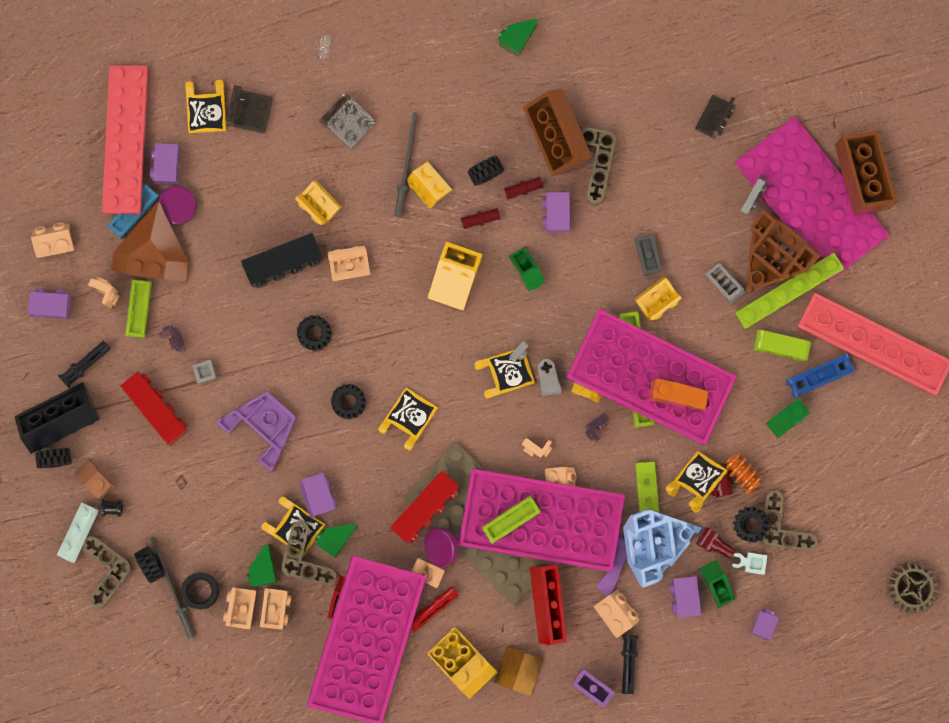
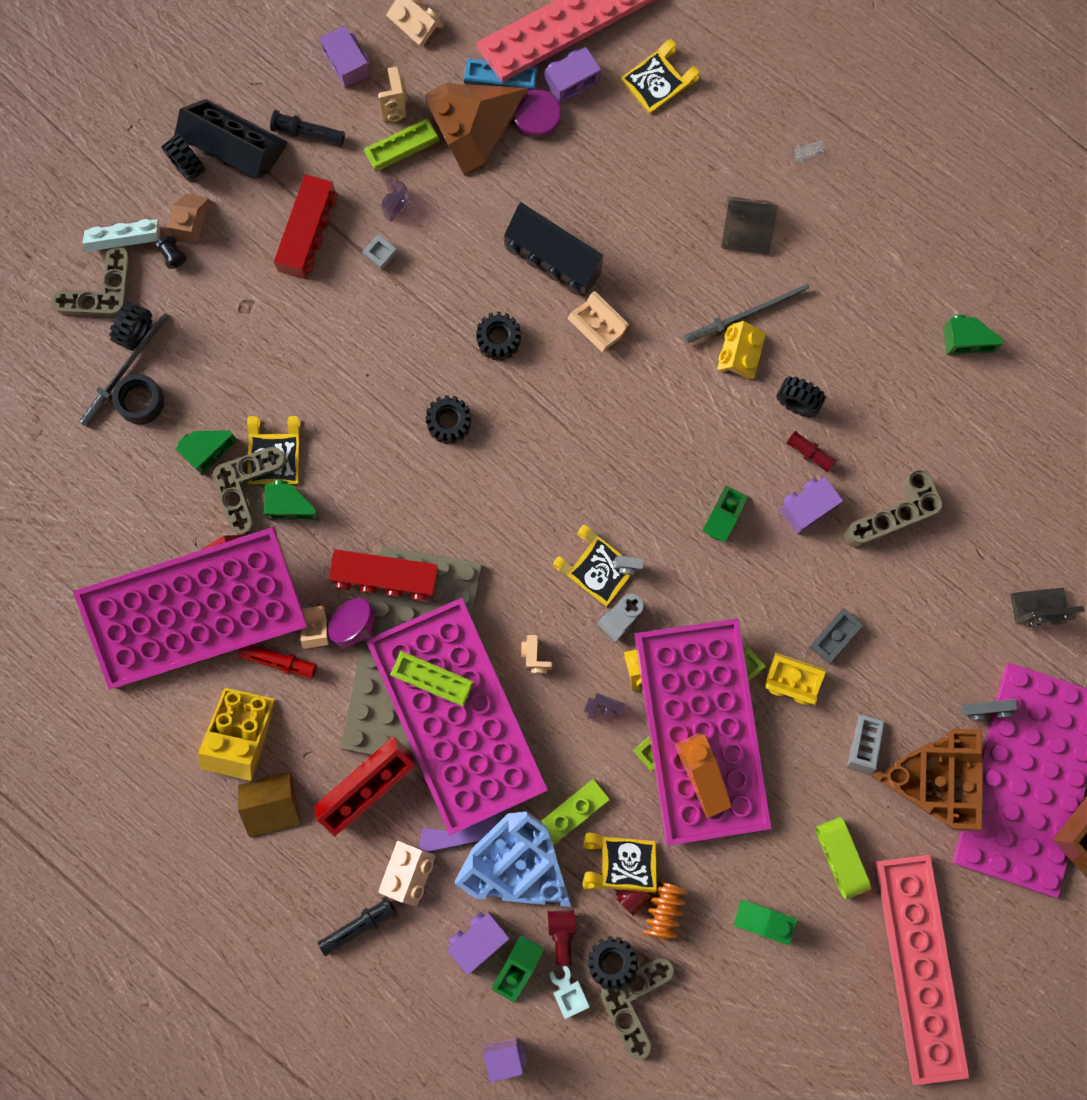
camera: 45 degrees right, 5 degrees down
(240, 608) = (145, 451): light nougat bracket -> none
(249, 110) = (686, 117): clear smoke bracket -> none
(268, 419) = (372, 349): medium lavender wing -> none
(274, 609) = (168, 490): light nougat bracket -> none
(317, 495) = (322, 452): medium lavender brick -> none
(318, 203) = (639, 250): yellow bracket -> none
(410, 415) = (479, 495): flag -> none
(455, 276) = (664, 440): yellow slope -> none
(480, 218) = (745, 427): dark red pin -> none
(557, 132) = (899, 444): dark orange brick -> none
(561, 475) = (522, 704): light nougat bracket -> none
(593, 688) = (300, 904): medium lavender brick -> none
(789, 291) = (912, 824): lime plate -> none
(821, 375) = (840, 927): blue plate -> none

